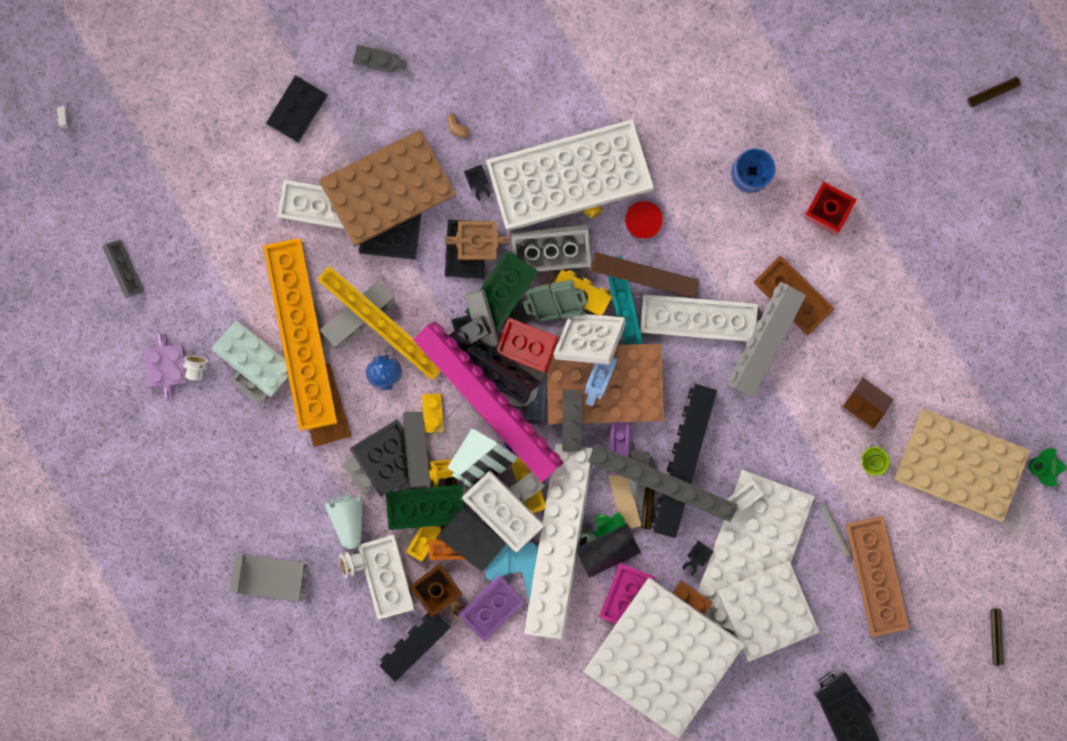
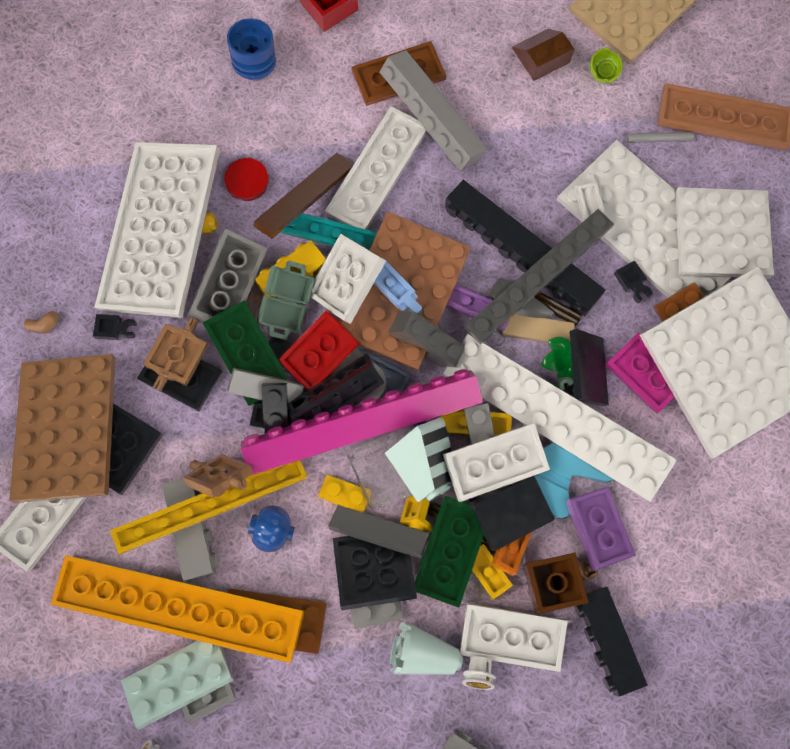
camera: 65 degrees left, 10 degrees down
(402, 317) = (217, 475): none -> medium nougat plate

